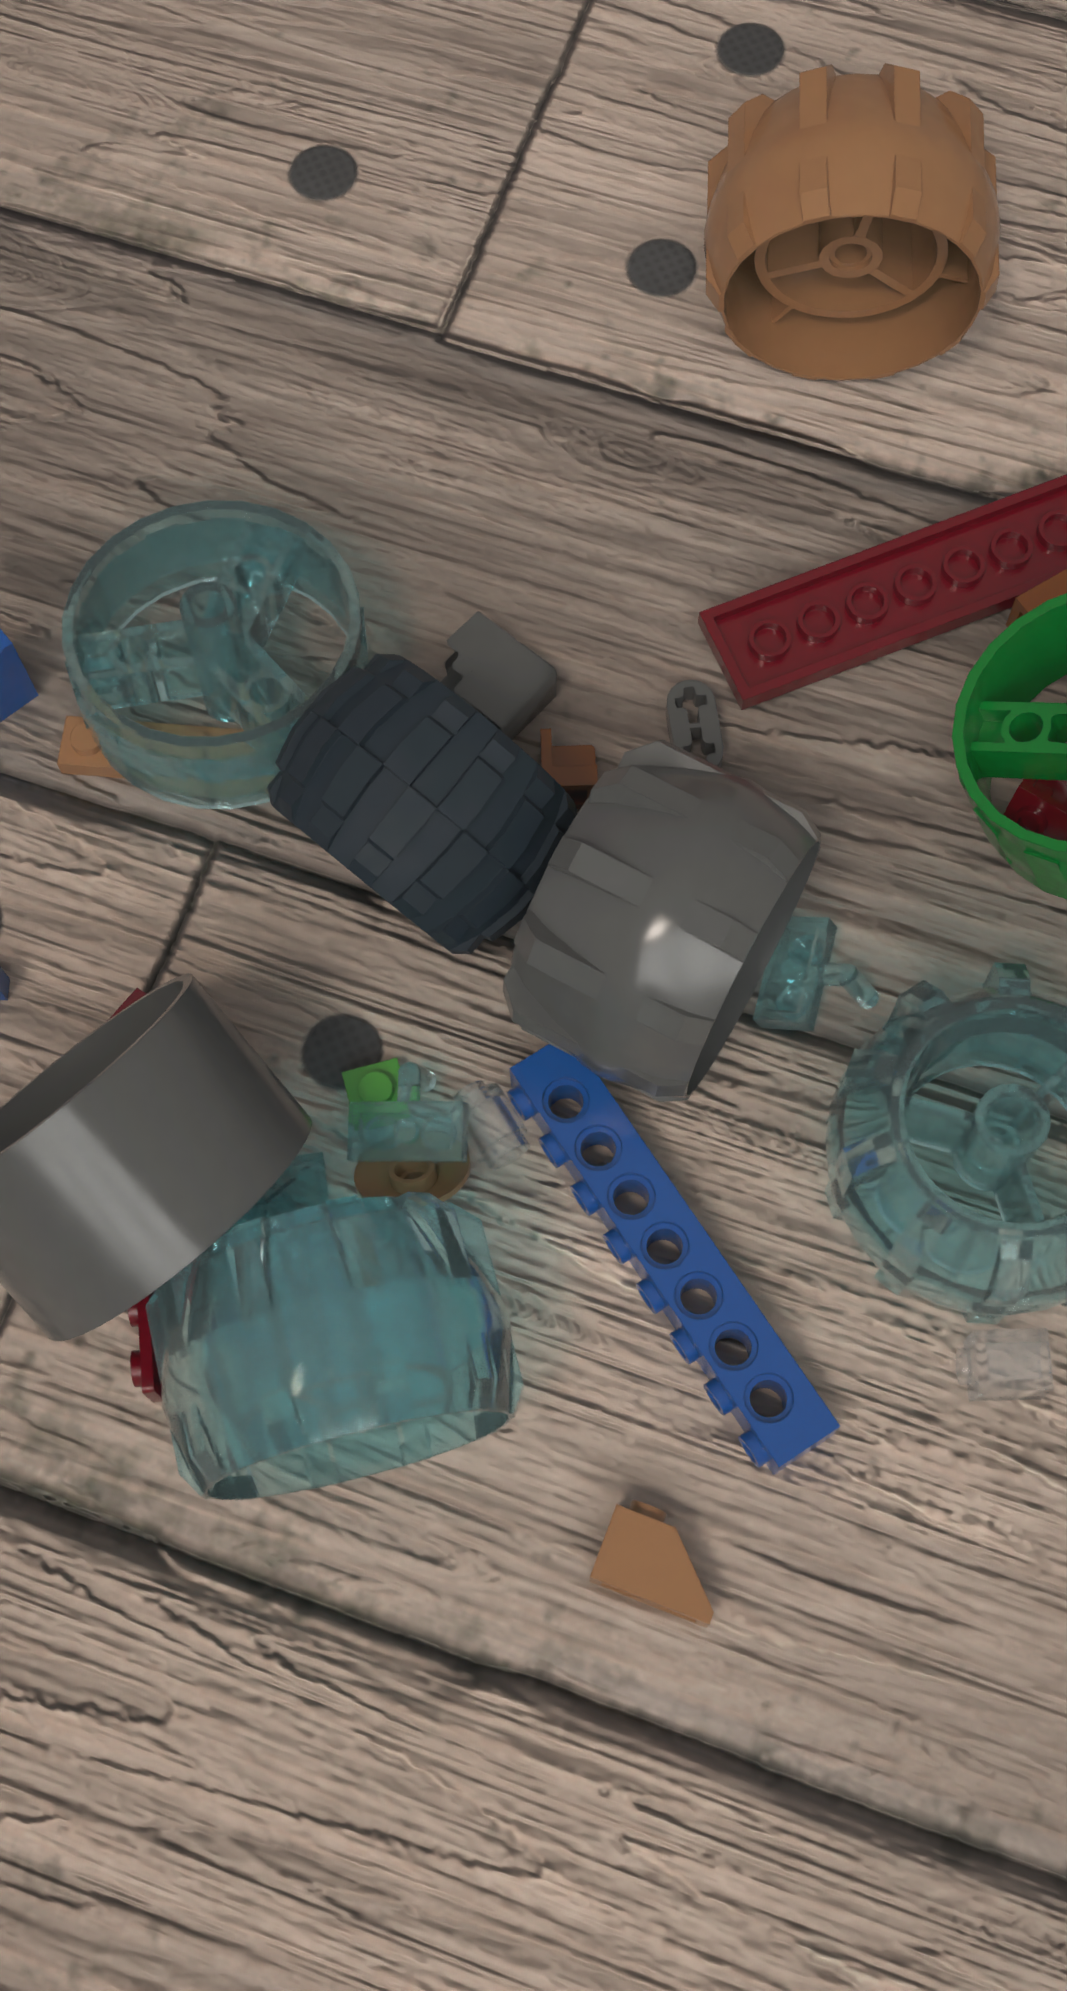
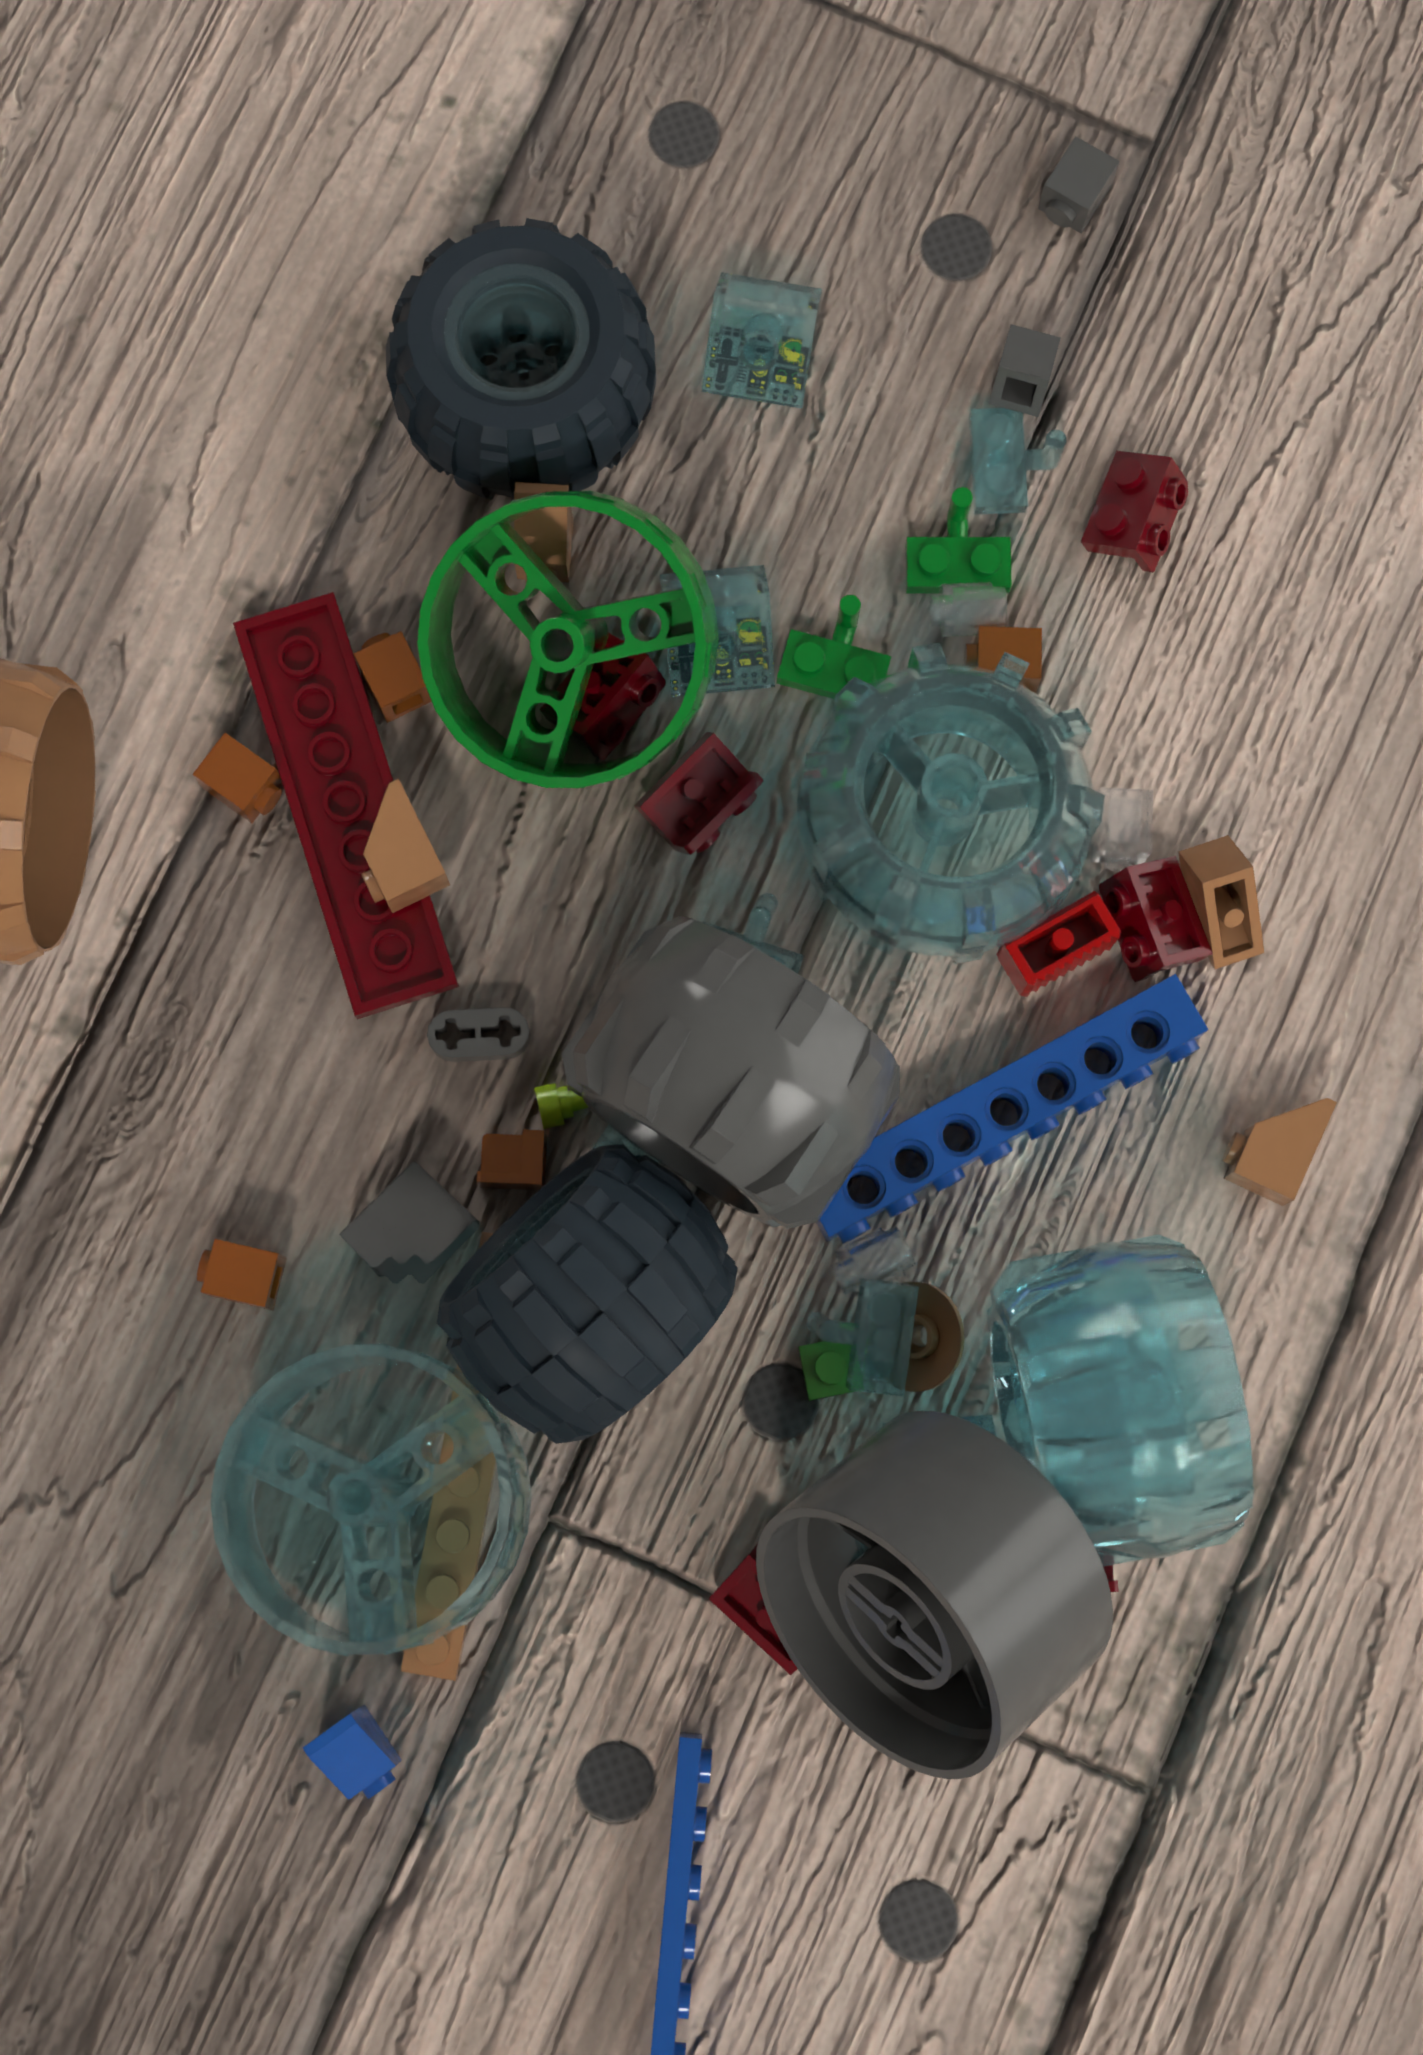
camera: 90 degrees left, 10 degrees up
(436, 543) = (241, 1274): none -> dark orange brick
(859, 1295) = (1059, 944): none -> red brick
(869, 627) = (400, 854): none -> medium nougat slope
(906, 1410) = (1154, 917): none -> dark red bracket
(925, 489) = (239, 779): none -> dark orange brick
(935, 1486) = (1225, 899): none -> medium nougat slope
(974, 911) = (699, 795): none -> dark red bracket

